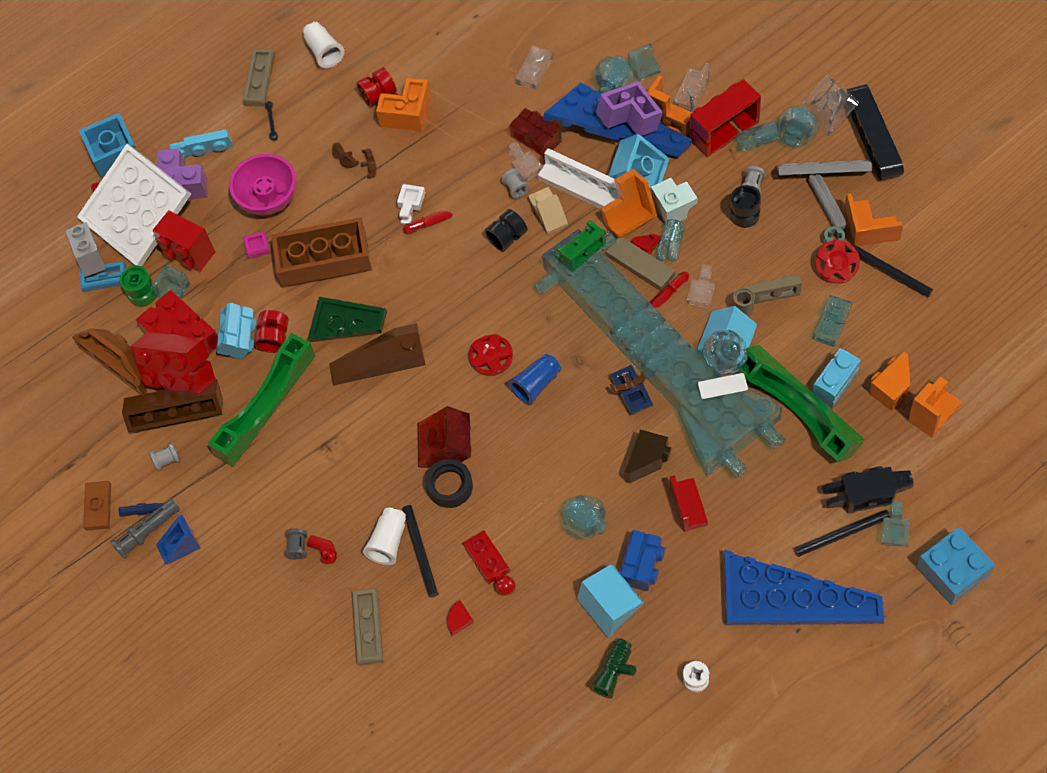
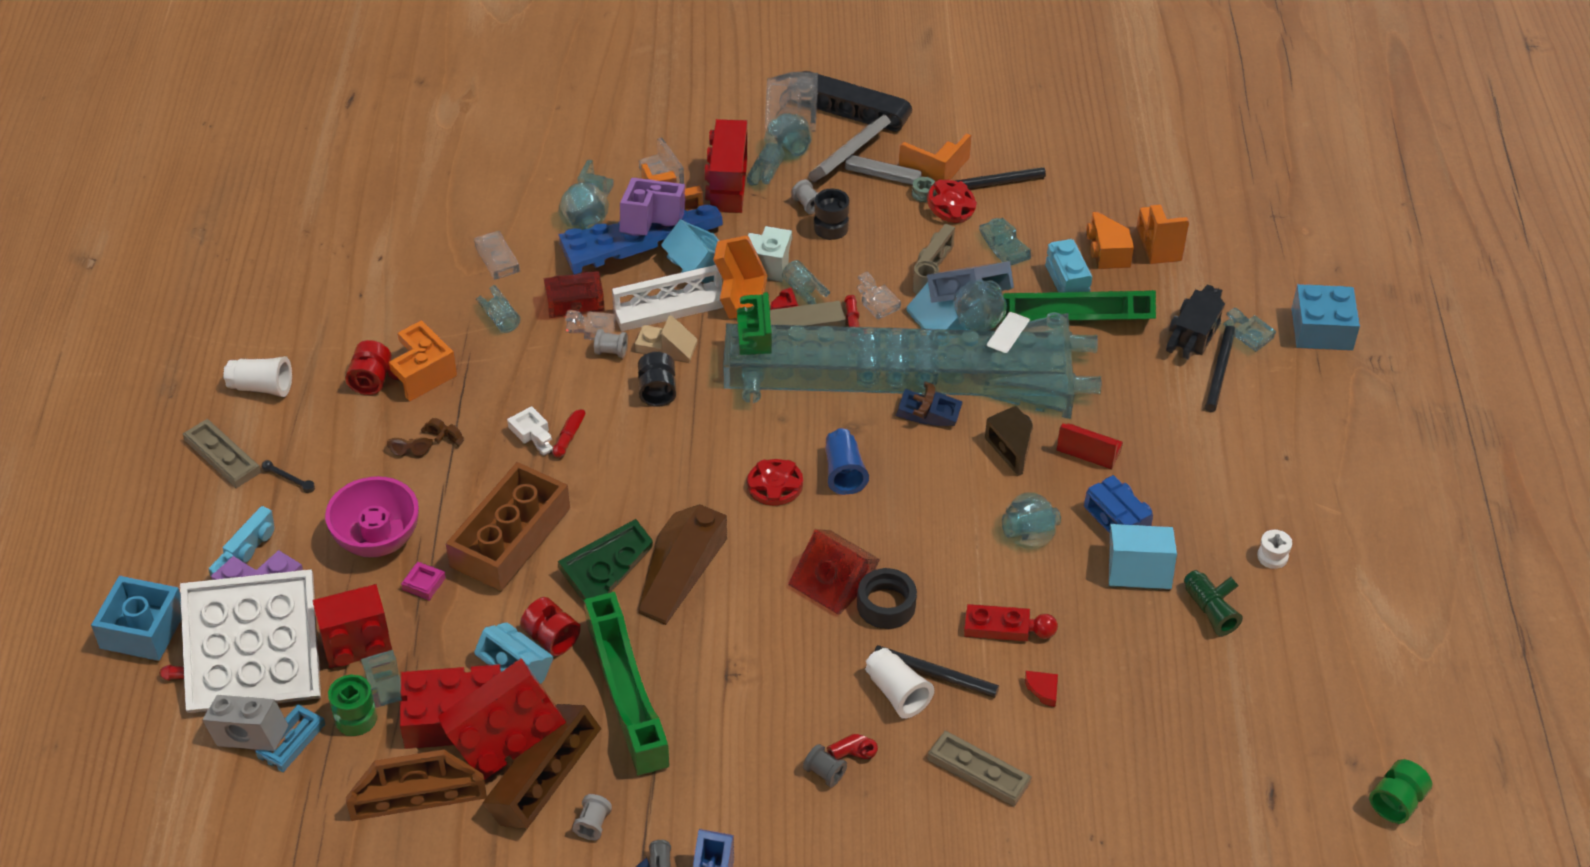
camera: 60 degrees left, 15 degrees down
(487, 107) = (500, 311): none -> clear light blue hinge
(751, 325) = (946, 284): none -> sand blue panel
(784, 596) = (1249, 441): blue wing -> none

